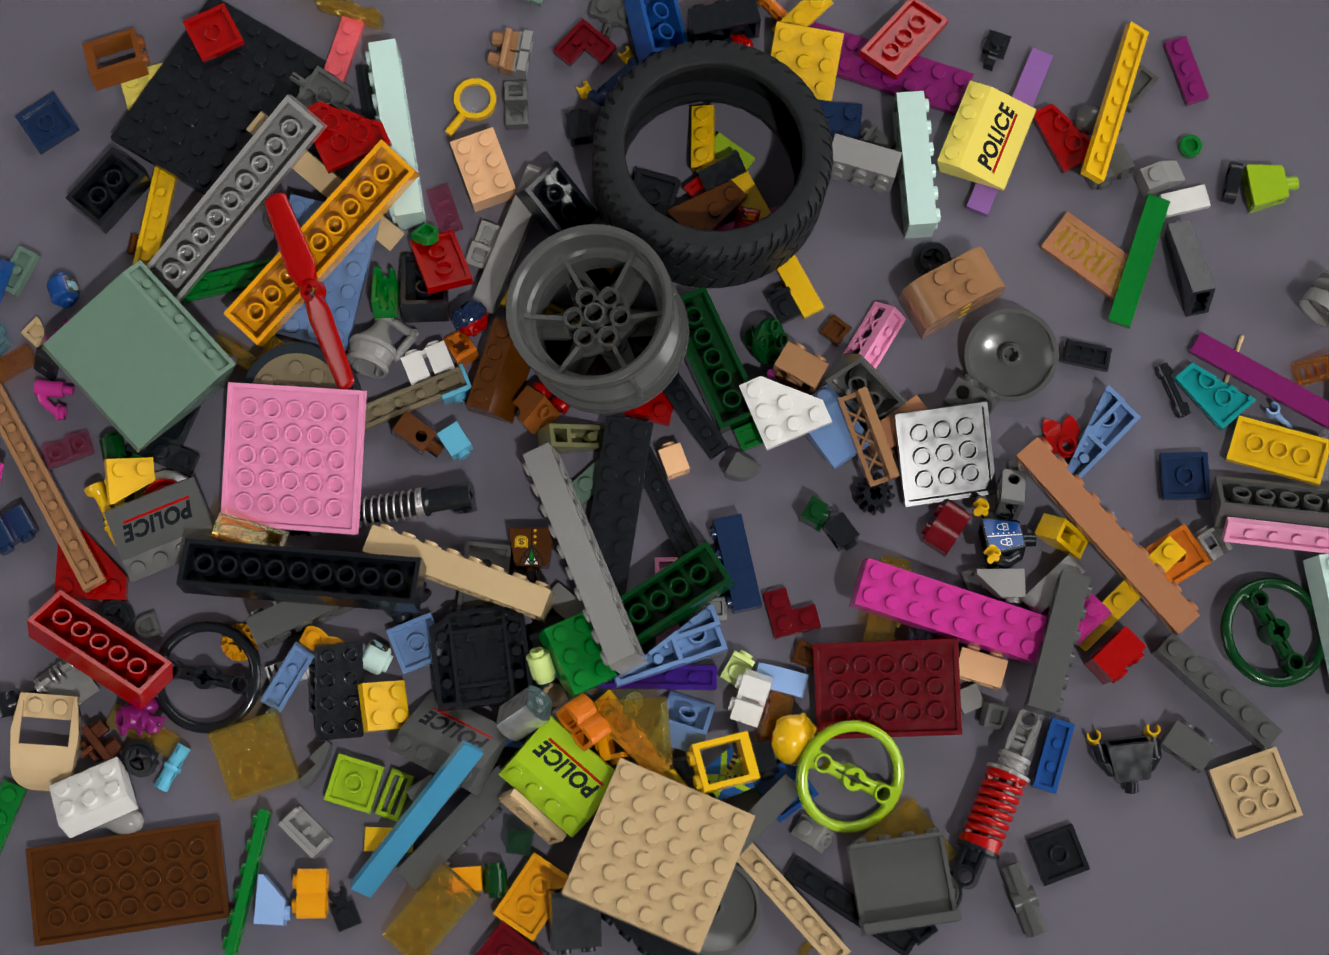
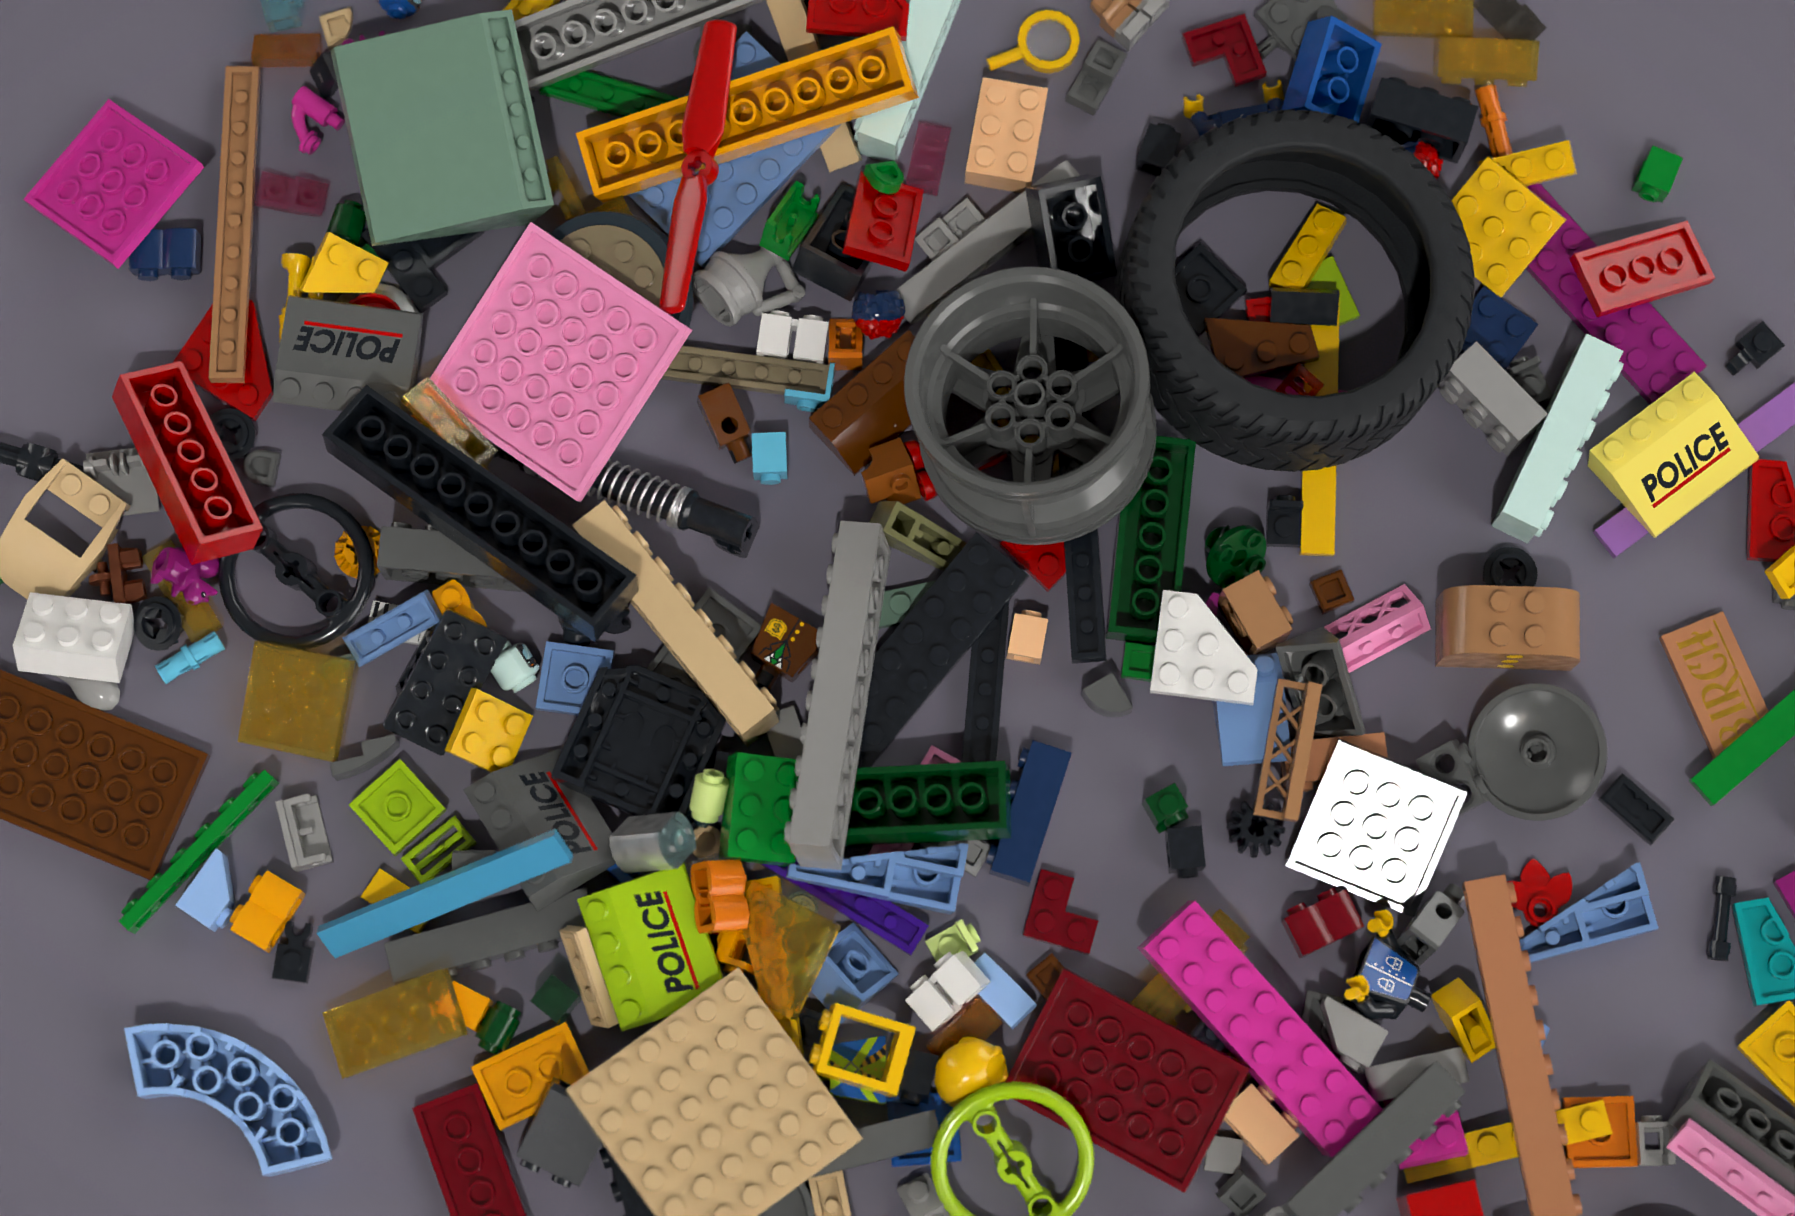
camera: 30 degrees right, 0 degrees up
(1184, 476) = (1670, 1036): dark blue plate -> none

